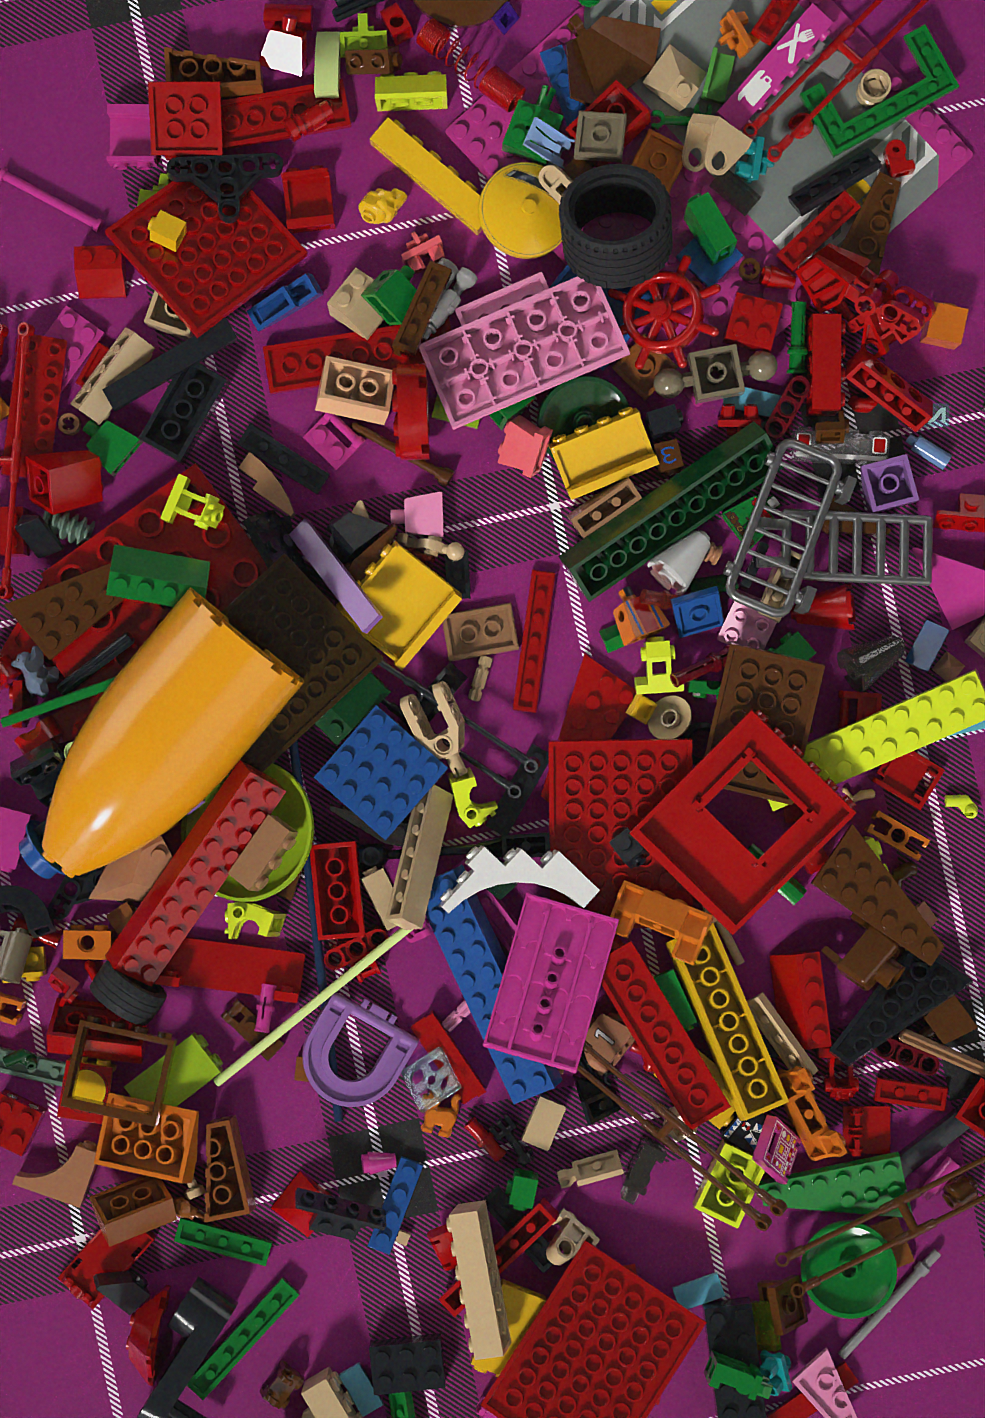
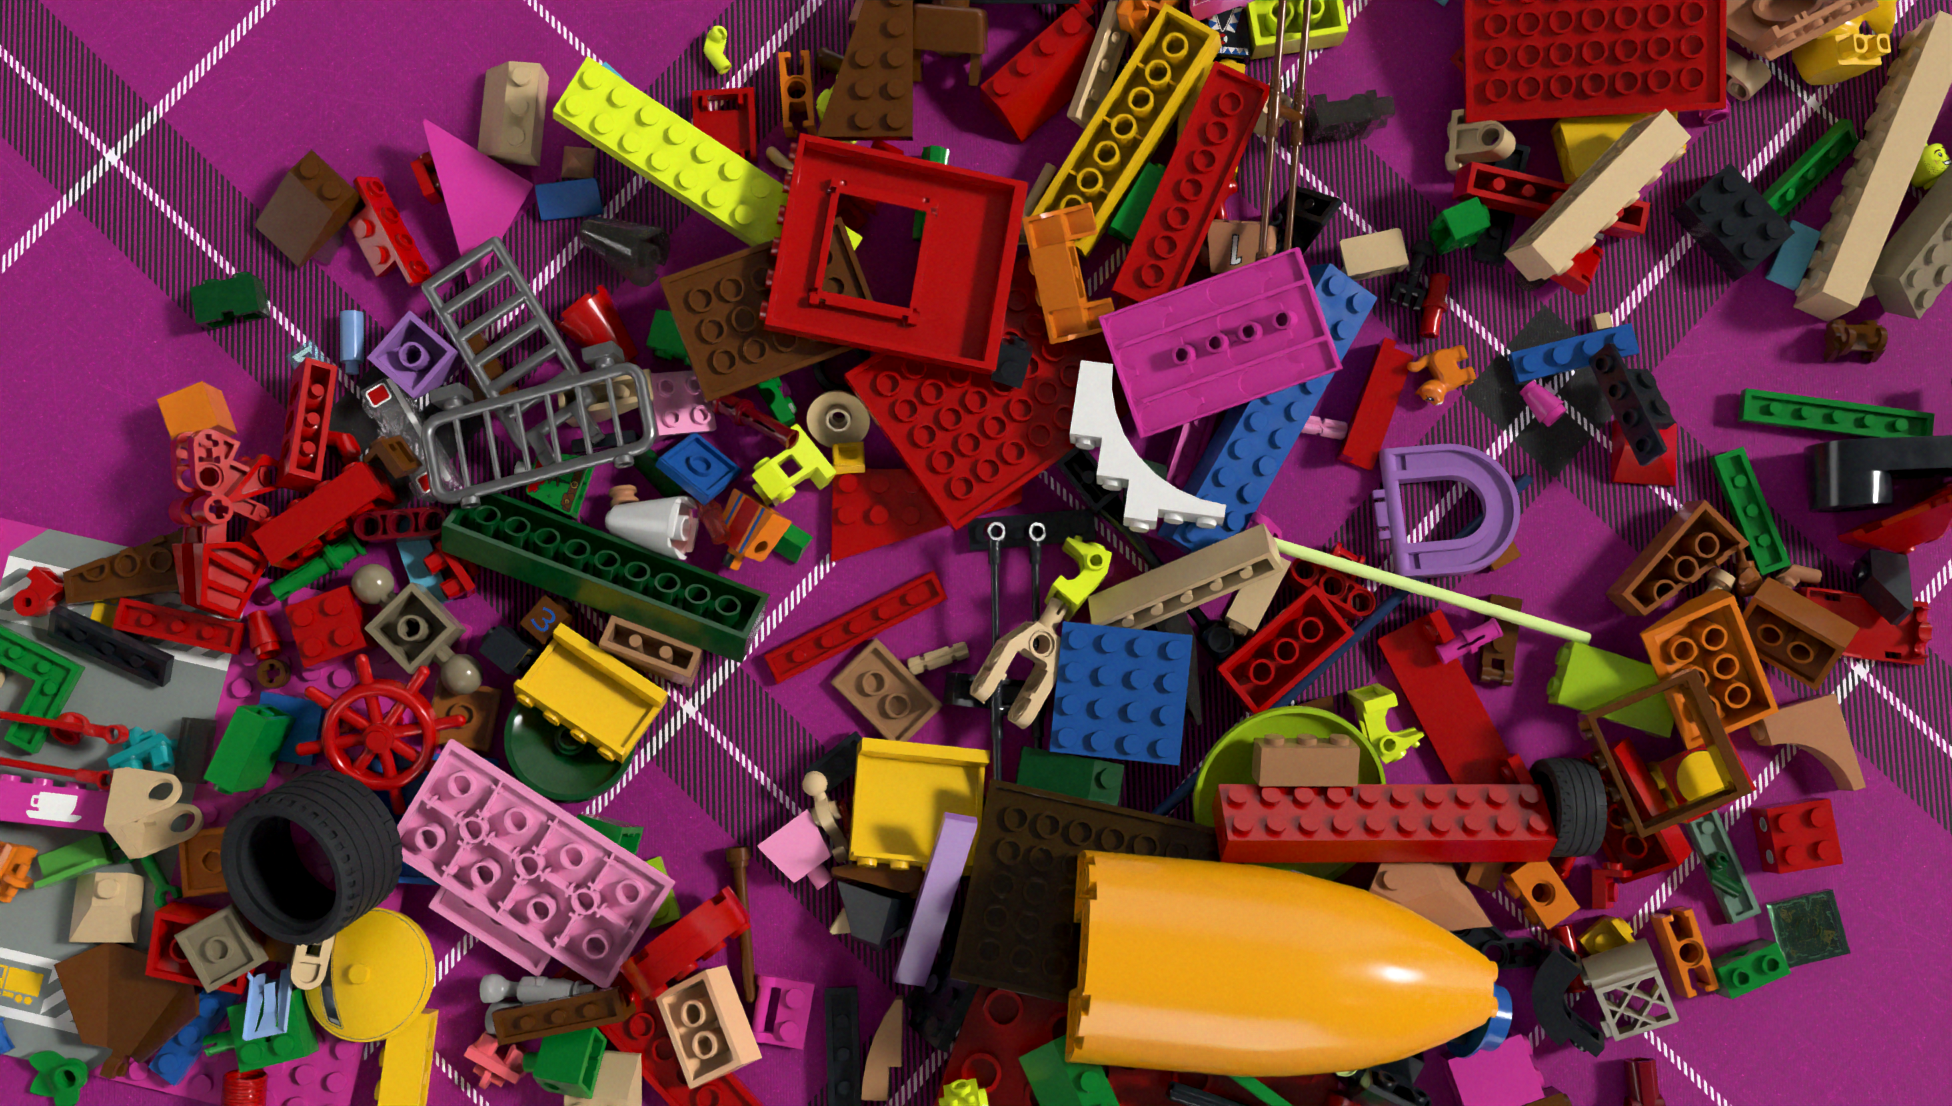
camera: 125 degrees left, 5 degrees down
(166, 1237) = (1796, 573): none -> nougat arm
(452, 1085) = (1437, 415): clear light blue piece -> none
(524, 445) = (641, 788): coral hips -> none
(591, 1169) = (1383, 170): tan plate -> none
(865, 705) = (680, 218): red plate -> none

